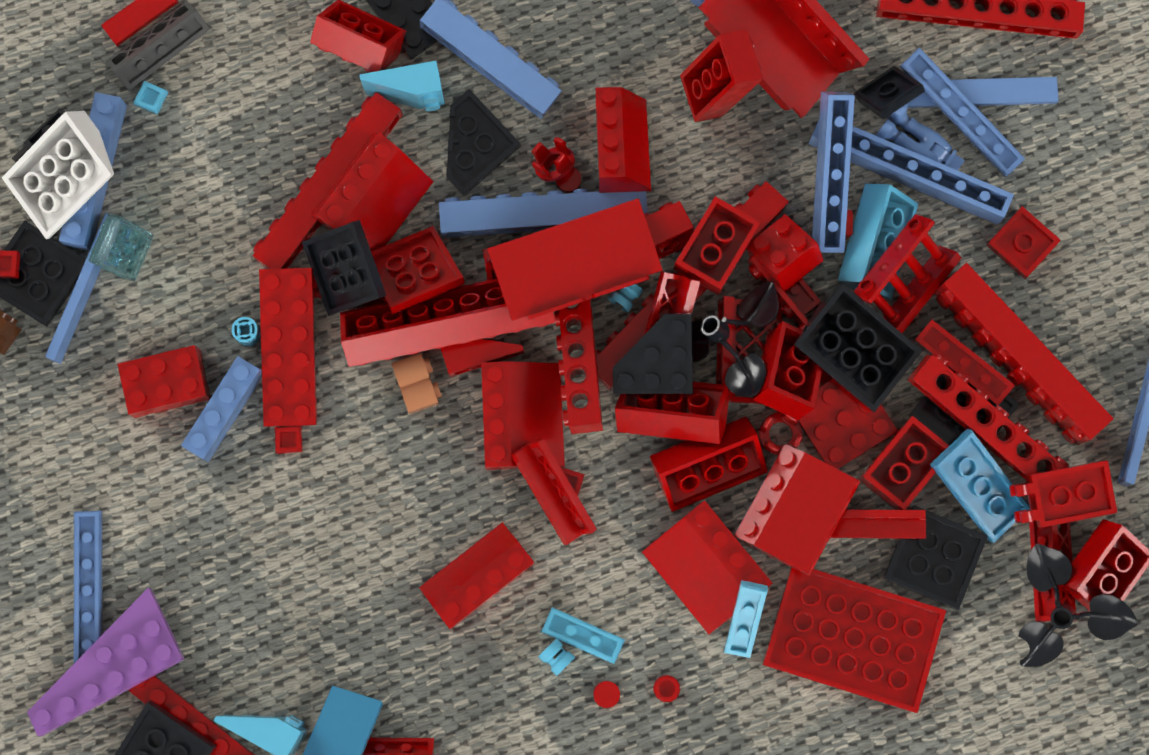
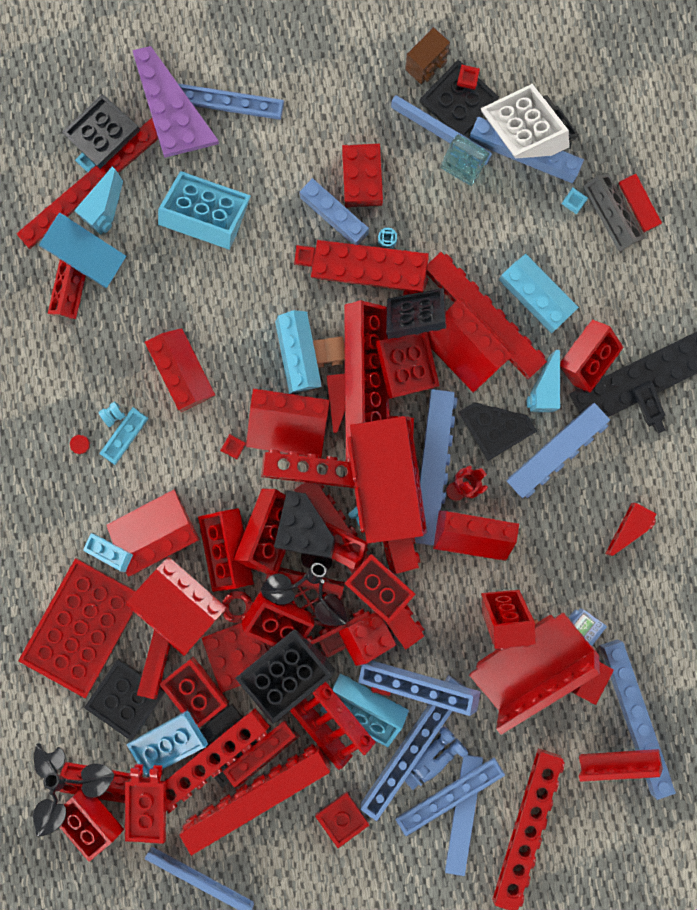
camera: 105 degrees right, 5 degrees up
(249, 589) = (203, 210): none -> medium azure slope
(285, 120) = (538, 293): none -> medium azure slope
(424, 419) = (297, 352): none -> medium azure slope
(553, 491) = (227, 433): red fence -> none
(666, 688) = (74, 487): red tile -> none
(889, 92) = (475, 744): black tile -> none

